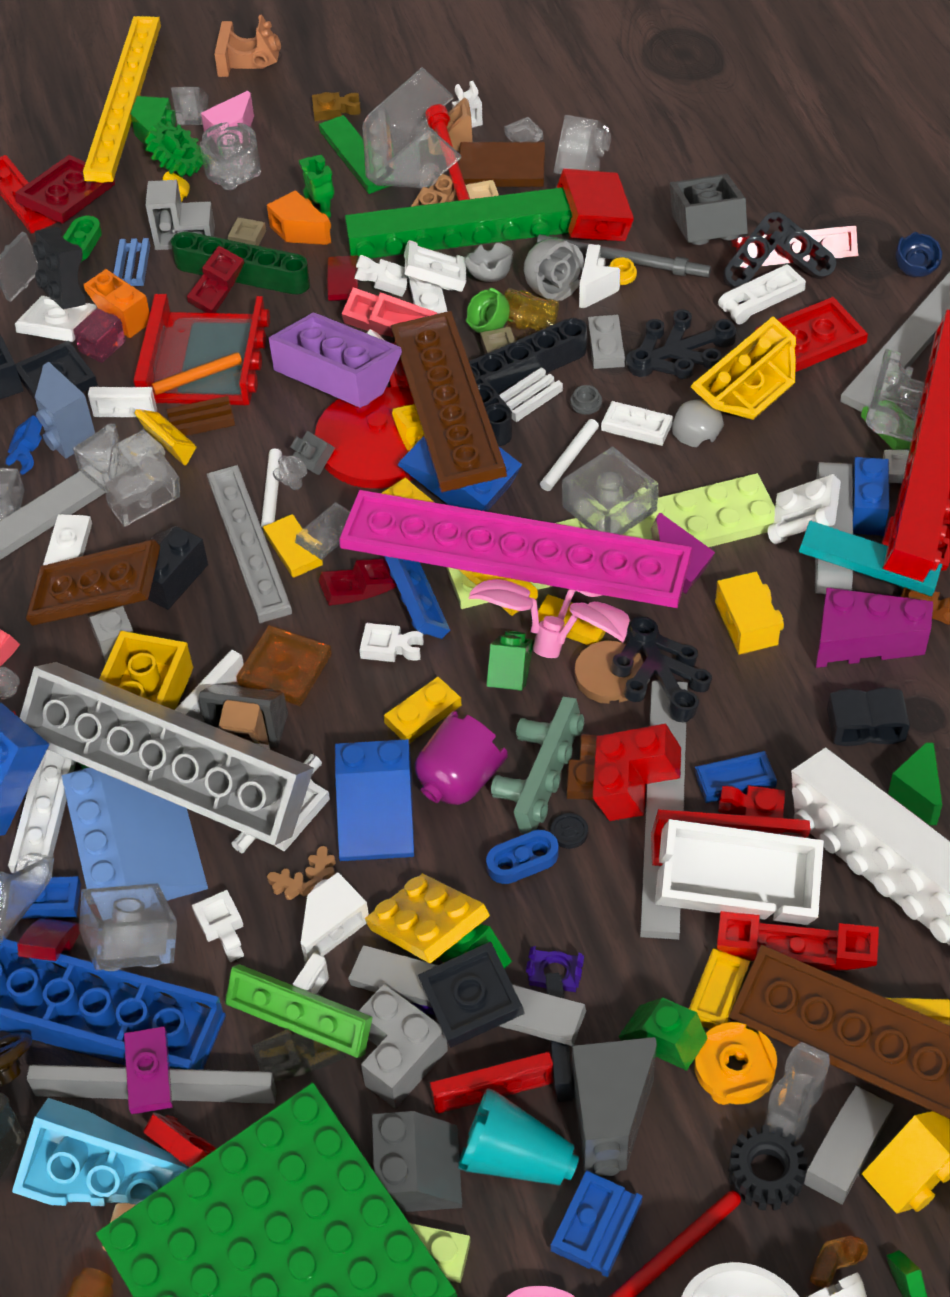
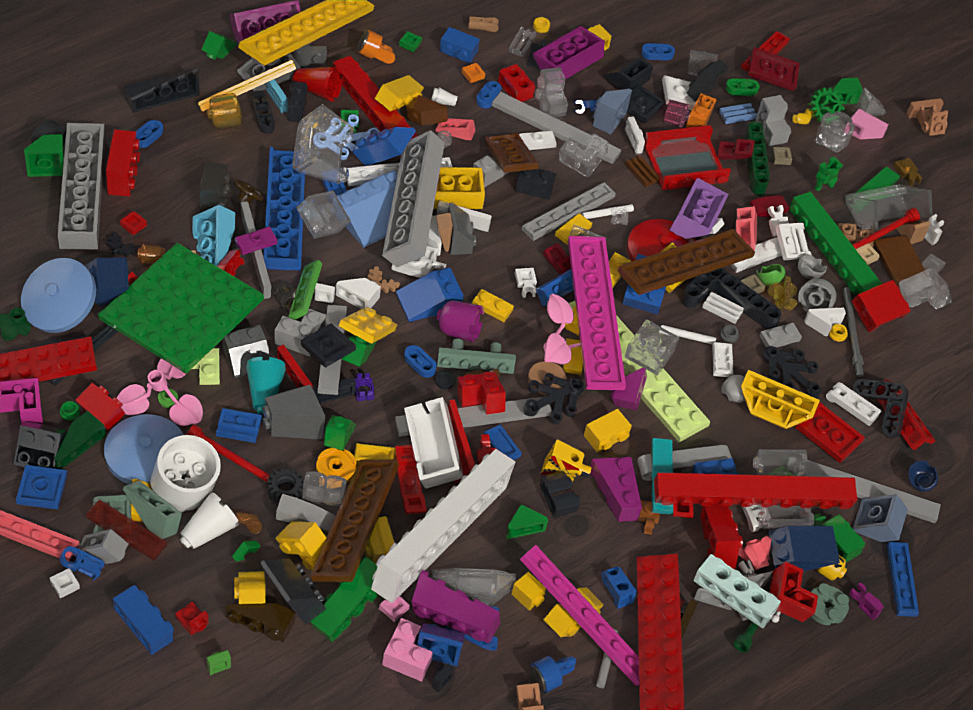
camera: 60 degrees right, 0 degrees up
(48, 938) = (307, 187): dark red slope -> none
(98, 456) = (588, 129): clear slope -> none
(125, 88) = (863, 72): yellow plate -> none
(167, 435) = (619, 156): yellow slope -> none
(196, 373) = (668, 159): orange bar -> none
(220, 920) = (344, 252): white plate -> none
(284, 664) = (496, 242): clear orange plate -> none
(298, 220) = (802, 174): orange slope -> none
(312, 451) = (635, 219): dark grey tile -> none
(509, 661) = (532, 331): slope -> none
(708, 208) = (900, 358): dark grey brick -> none
(803, 503) = (687, 443): white plate -> none
(815, 676) = (565, 459): none -> yellow torso

